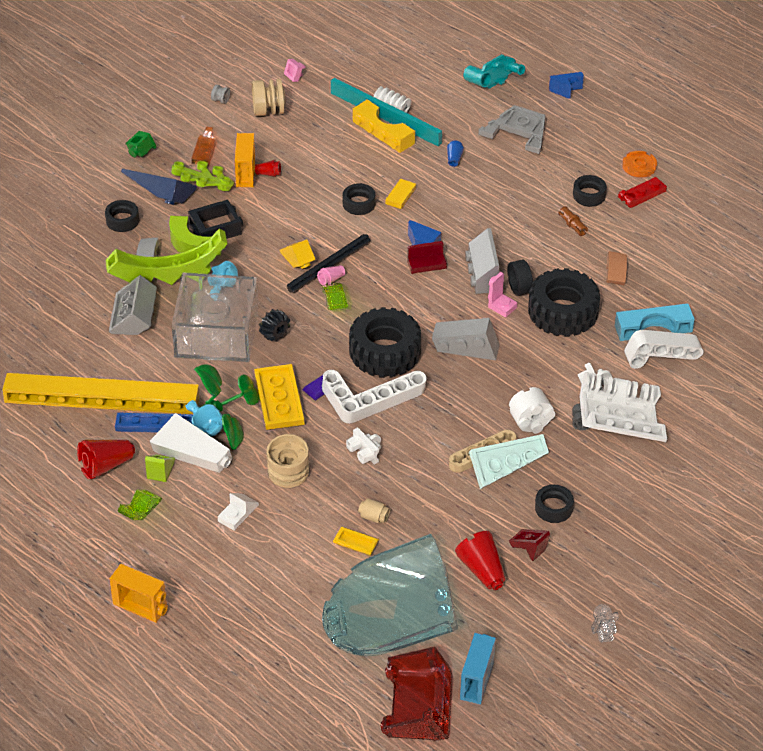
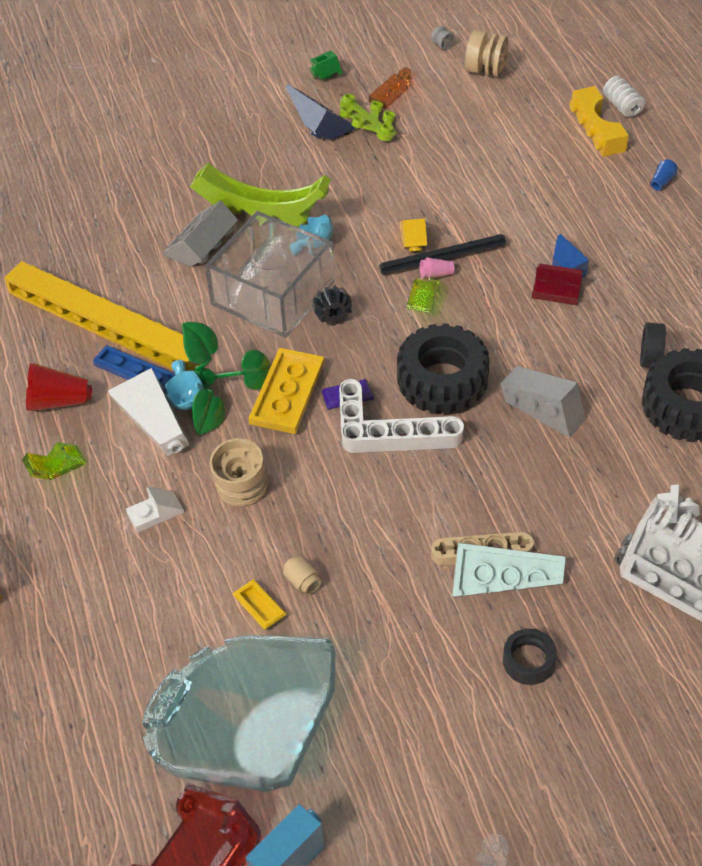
camera: 30 degrees right, 5 degrees up
(122, 206) = (257, 143): black tyre -> none
(148, 247) = (259, 175): light grey slope -> none
(158, 467) = (105, 422): lime slope -> none
(181, 237) = (304, 169): lime arch -> none
(212, 211) = (349, 158): black window -> none
(245, 160) = (420, 111): light orange window -> none
(269, 168) = (445, 130): red cone -> none
(294, 70) = (536, 34): bright pink tile -> none
(359, 208) = (521, 182): black tyre -> none
(367, 444) = (343, 497): white hips -> none
(387, 111) = (614, 108): teal tile -> none
(400, 193) = (574, 202): yellow tile -> none
(482, 261) = (617, 314): slope -> none
(482, 559) = (389, 698): red cone -> none
(498, 301) = (612, 362): bright pink bracket -> none
(531, 410) = (568, 519): white brick -> none
(532, 540) = (468, 698): dark red slope -> none

